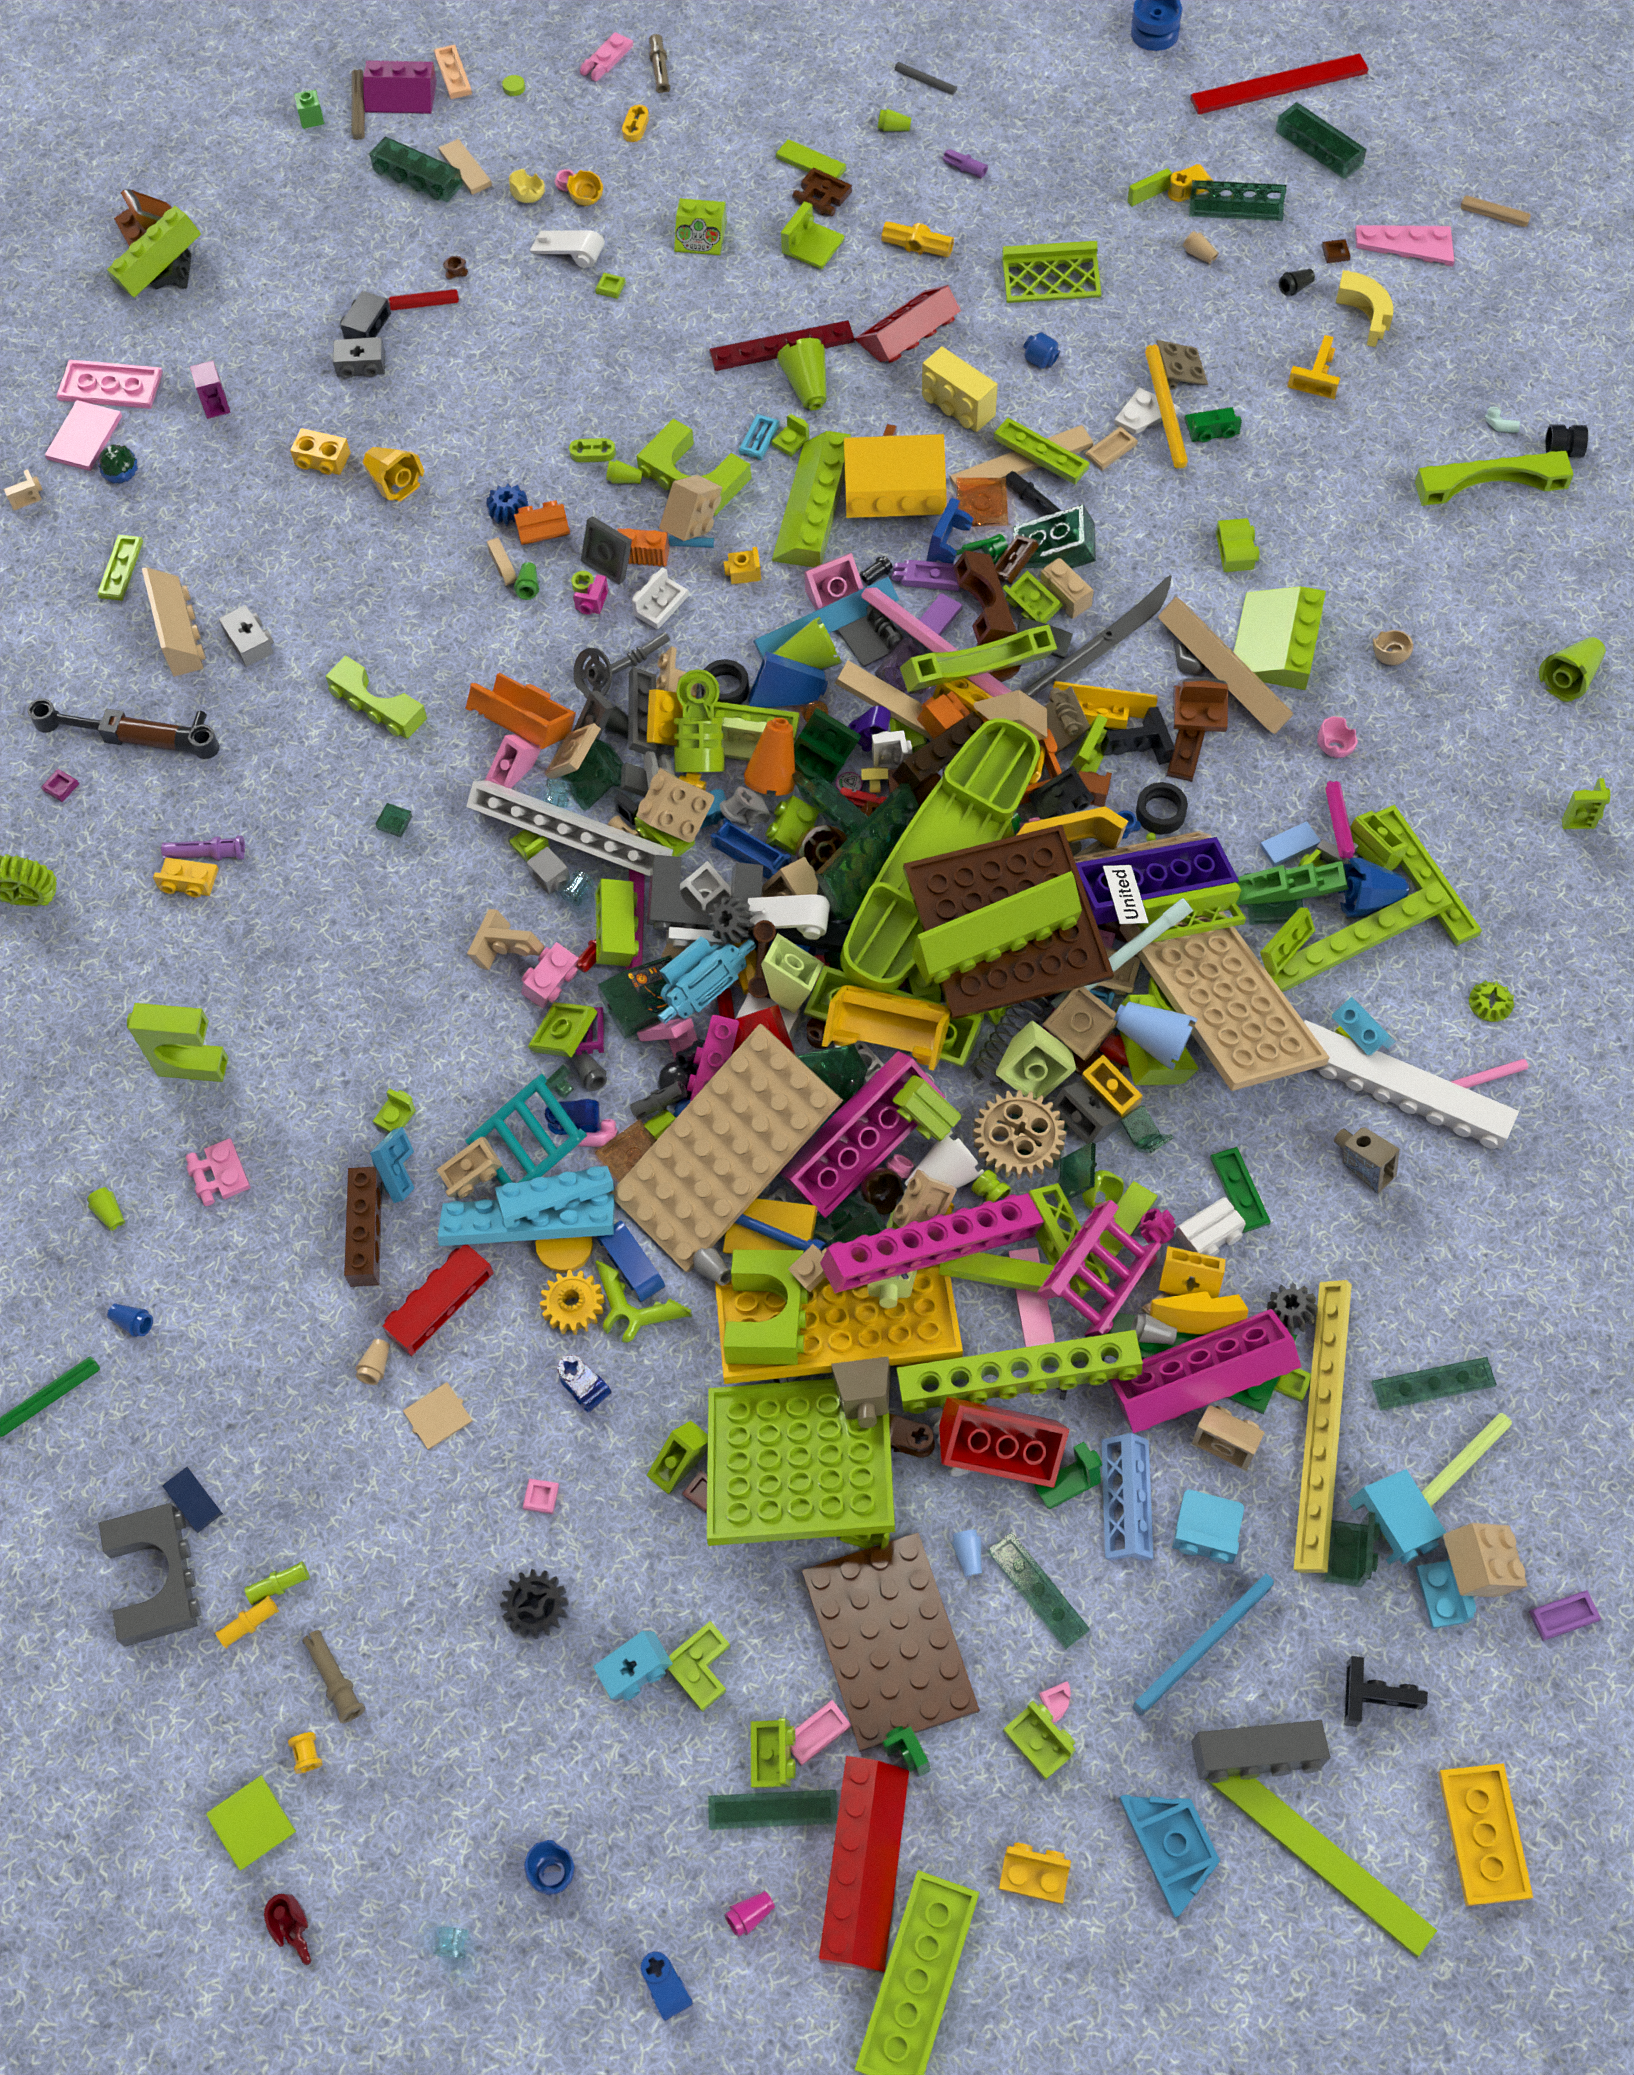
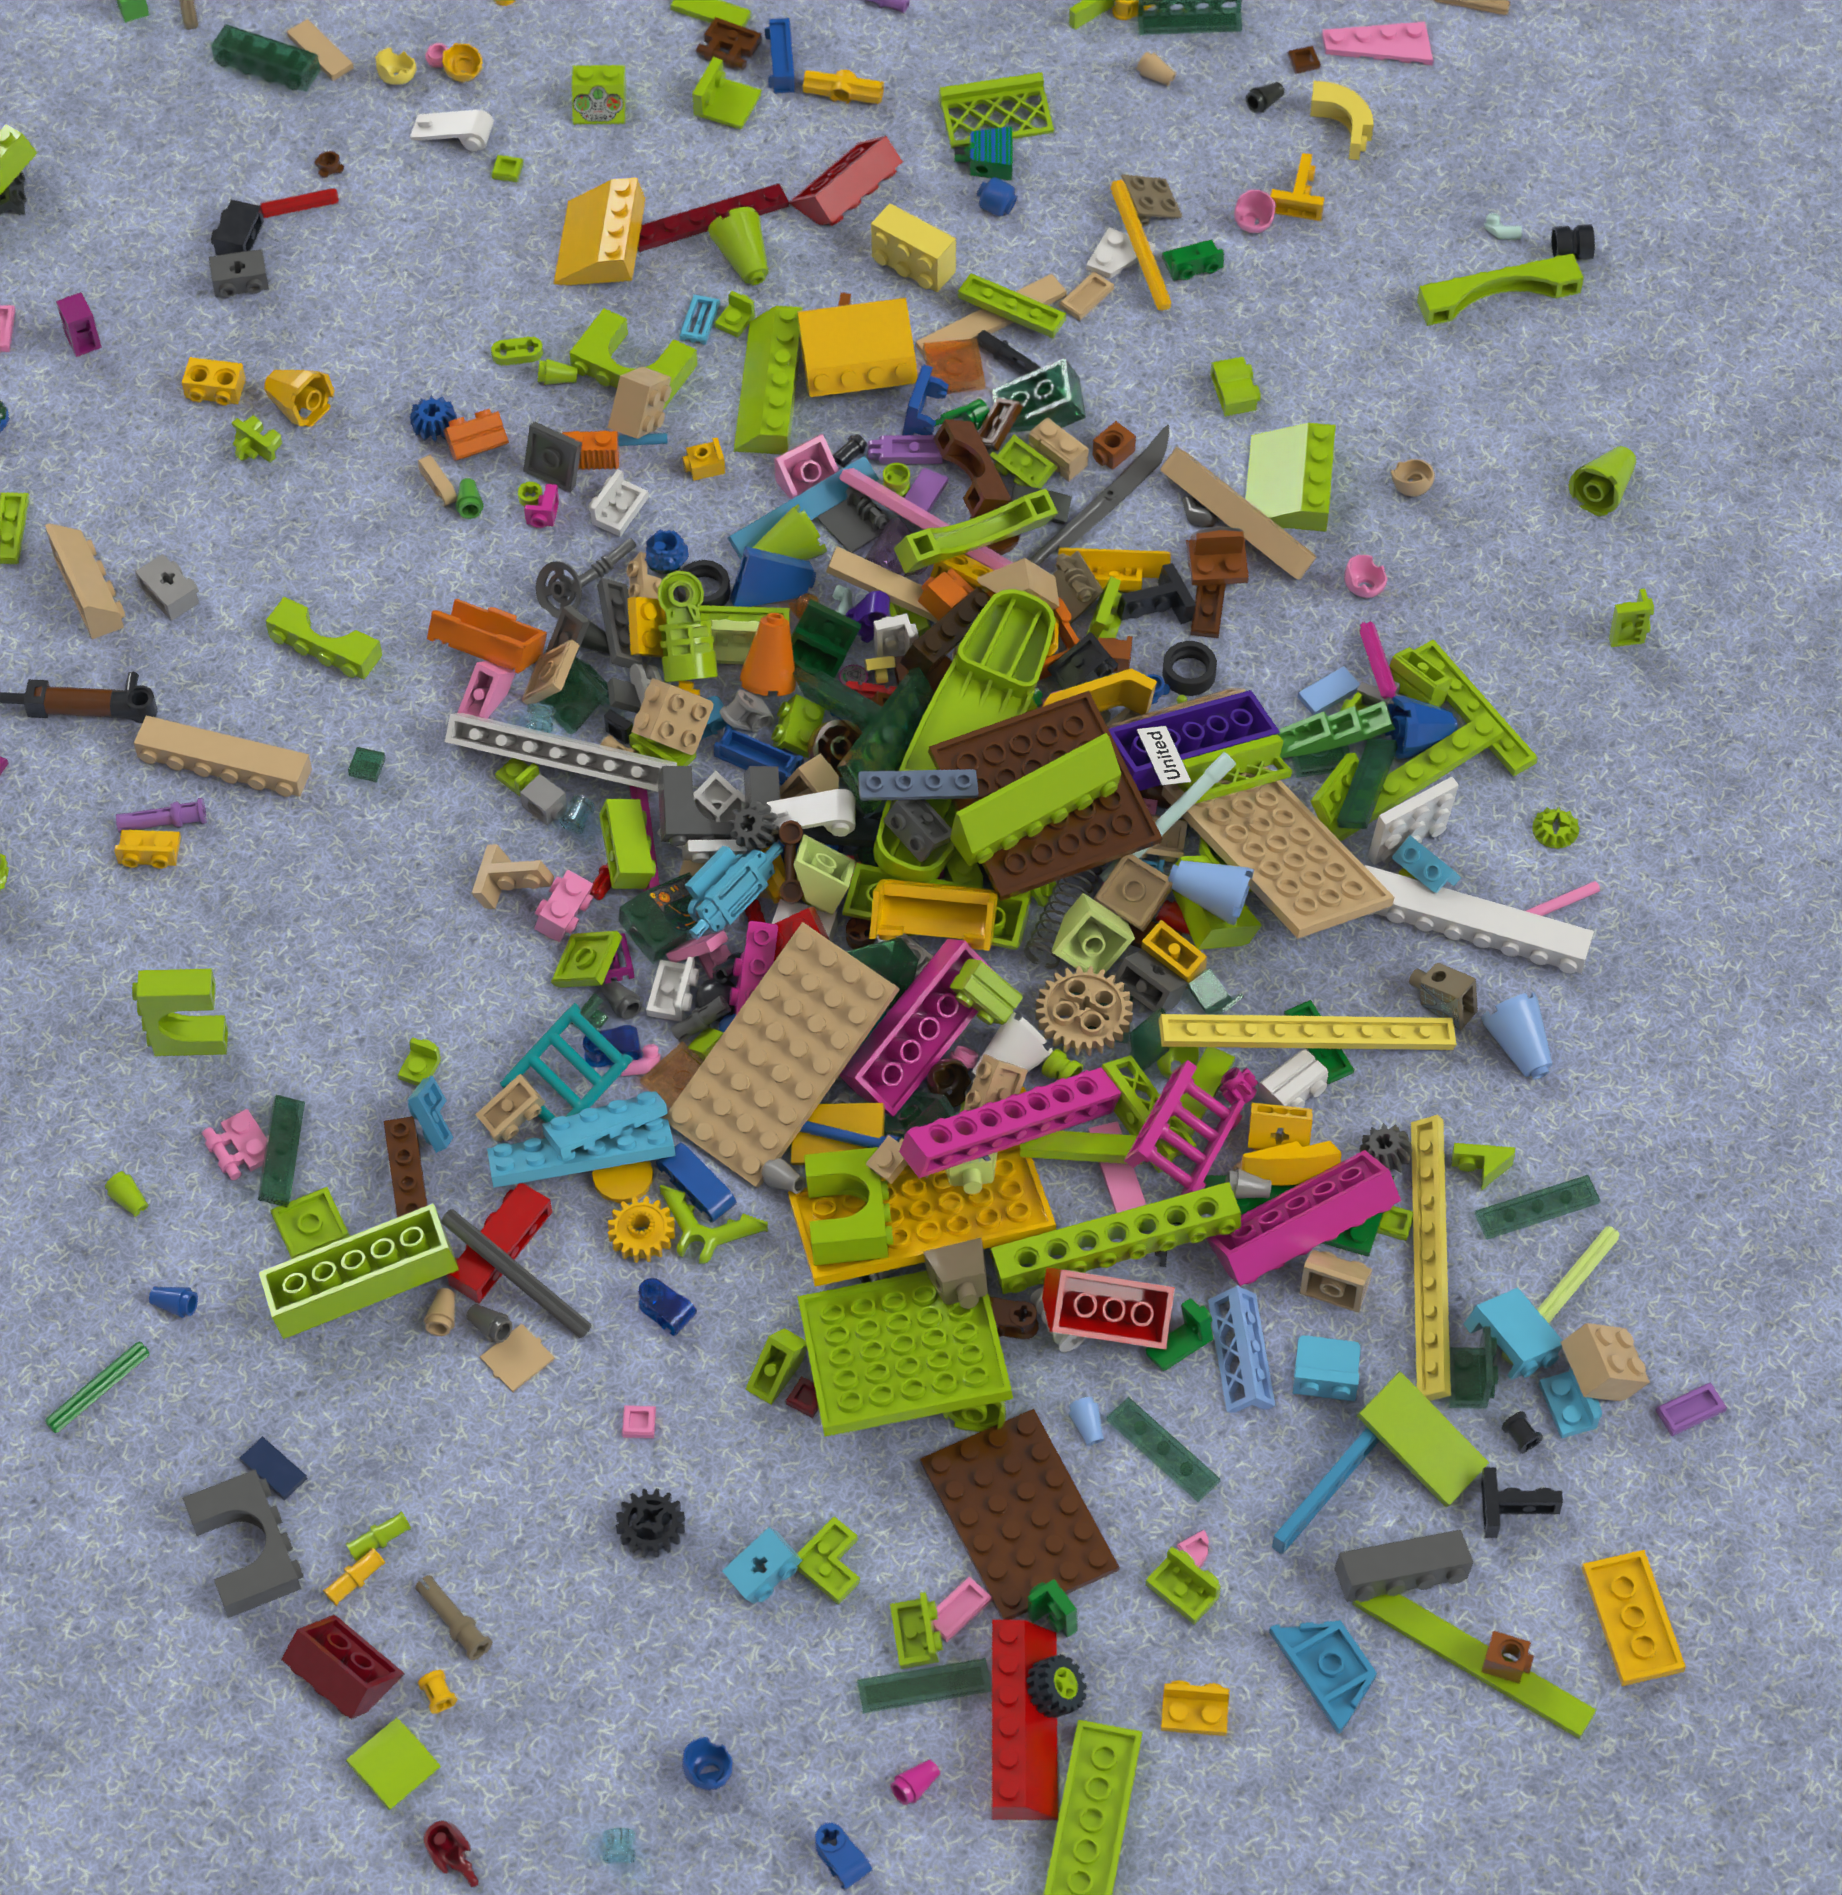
camera: 10 degrees left, 5 degrees down
(219, 1713) = (341, 1665): none -> dark red slope
(252, 1184) = (281, 1151): none -> clear green tile
(267, 798) = (222, 756): none -> tan brick
(268, 1258) = (309, 1223): none -> lime tile
(299, 1315) = (358, 1271): none -> lime brick
(344, 511) = (250, 441): none -> lime hips
(416, 1379) = (490, 1323): none -> dark grey cone
(446, 1335) = (516, 1273): none -> dark grey axle
(637, 1067) = (671, 990): none -> white bracket
(683, 351) = (601, 234): none -> yellow slope
(695, 648) = (666, 552): none -> blue piece
(852, 707) = (845, 596): none -> light aqua arm
(866, 207) = (781, 55): none -> blue container
(883, 939) = (918, 827): none -> dark grey bracket
(887, 900) = (918, 784): none -> sand blue bracket
(900, 1833) = (1056, 1686): none -> black wheel
(914, 601) = (897, 478): none -> lime wheel
(1041, 310) = (988, 153): none -> green torso
(1117, 589) = (1113, 445): none -> dark orange brick
(1229, 1182) = (1307, 1032): none -> light yellow plate
(1274, 379) = (1254, 205): none -> bright pink hair
(1294, 1617) = (1422, 1439): none -> lime tile
(1316, 940) = (1367, 784): none -> clear green tile
(1339, 1867) = (1506, 1644): none -> dark orange brick
(1358, 981) = (1418, 817): none -> white plate
(1393, 1330) = (1489, 1158): none -> lime slope
(1393, 1619) = (1522, 1432): none -> black bush
(1437, 1207) = (1521, 1034): none -> light blue cone

